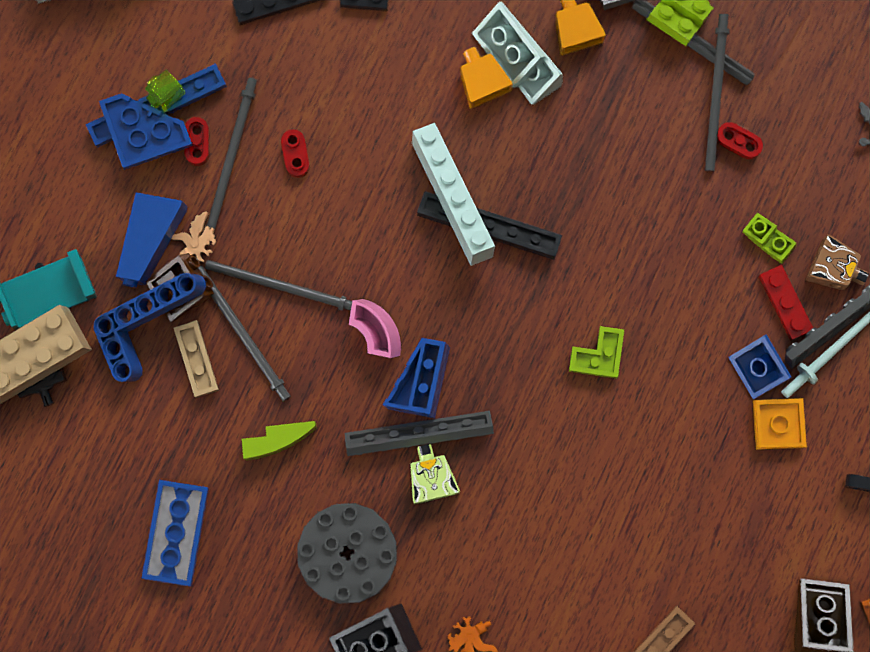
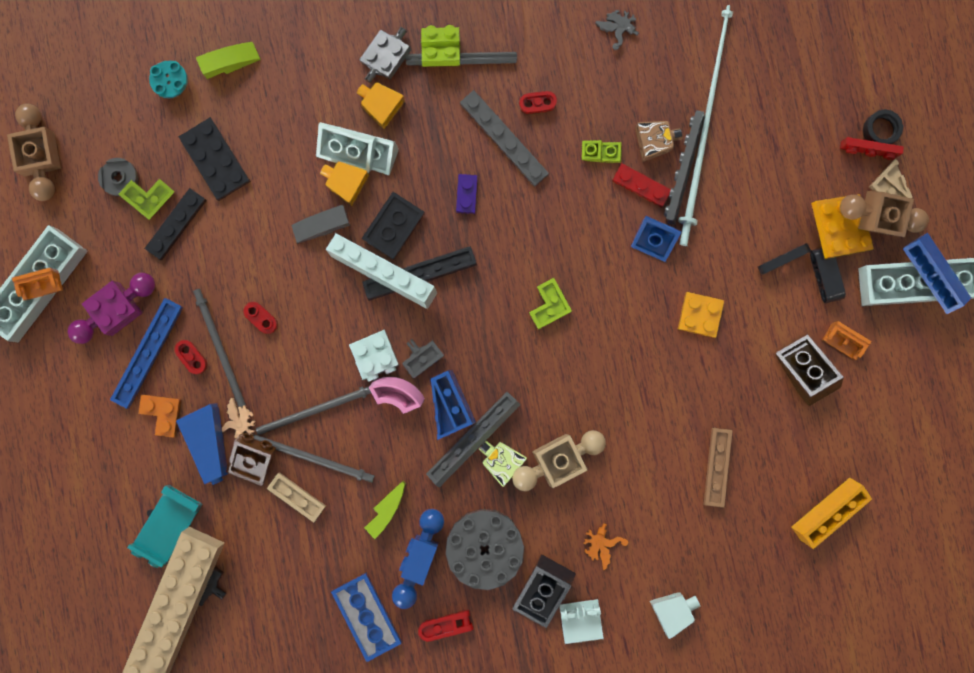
camera: 35 degrees left, 5 degrees up
(128, 182) = (165, 409): none -> orange plate
(140, 315) = (238, 497): blue beam -> none
(142, 131) = (149, 377): blue plate -> none
(155, 36) = (111, 308): none -> magenta brick
(164, 91) = (144, 341): clear neon green brick -> none
(247, 603) = (445, 626): none -> red plate
(273, 512) = (420, 557): none -> blue brick
(381, 275) = (374, 356): none -> light aqua plate
(426, 103) = (320, 224): none -> dark grey slope
(428, 312) = (421, 358): none -> dark grey plate
(491, 519) = (559, 460): none -> tan brick
(498, 158) = (393, 225): none -> black plate
(597, 180) = (466, 193): none -> dark purple plate
(677, 152) = (504, 138): none -> dark grey plate
(722, 32) = (476, 39): dark grey bar -> none
(750, 480) = (700, 314): none -> light orange plate
(779, 424) = (693, 265): light orange plate -> none

